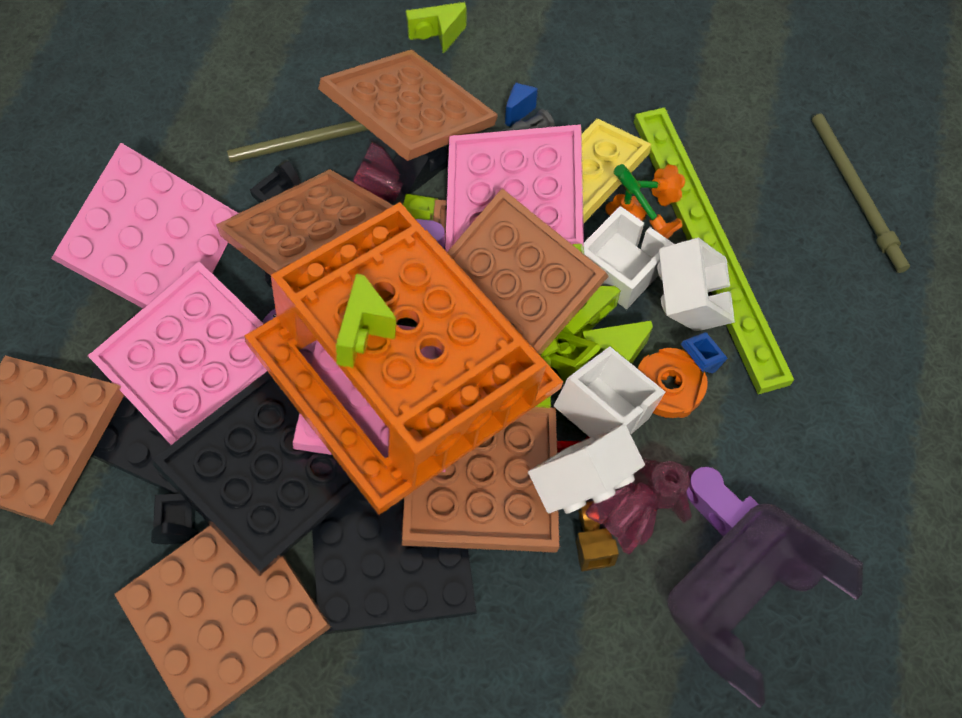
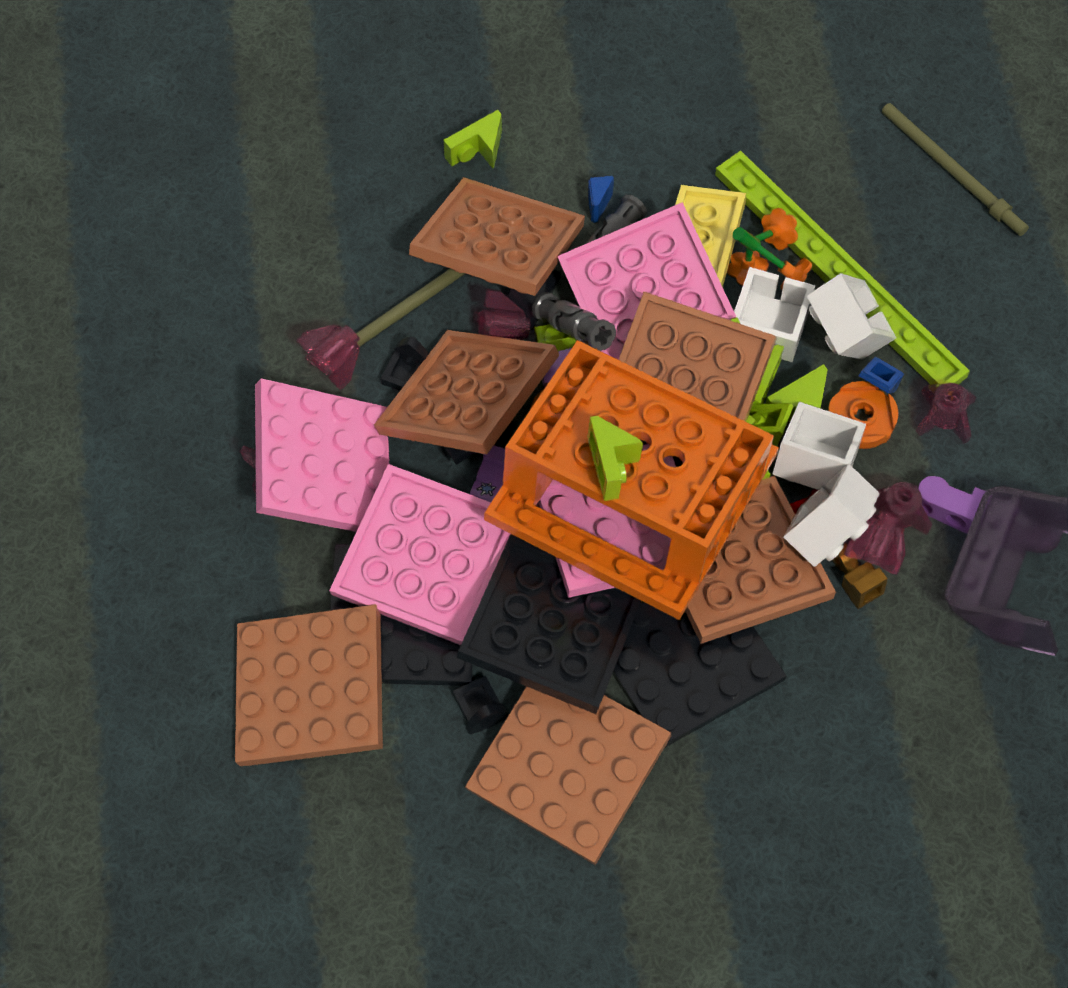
camera: 20 degrees left, 0 degrees up
(217, 149) = (333, 351): none -> clear pink brick
(434, 197) = (574, 321): none -> dark grey piece
(756, 408) = (947, 409): none -> clear pink brick

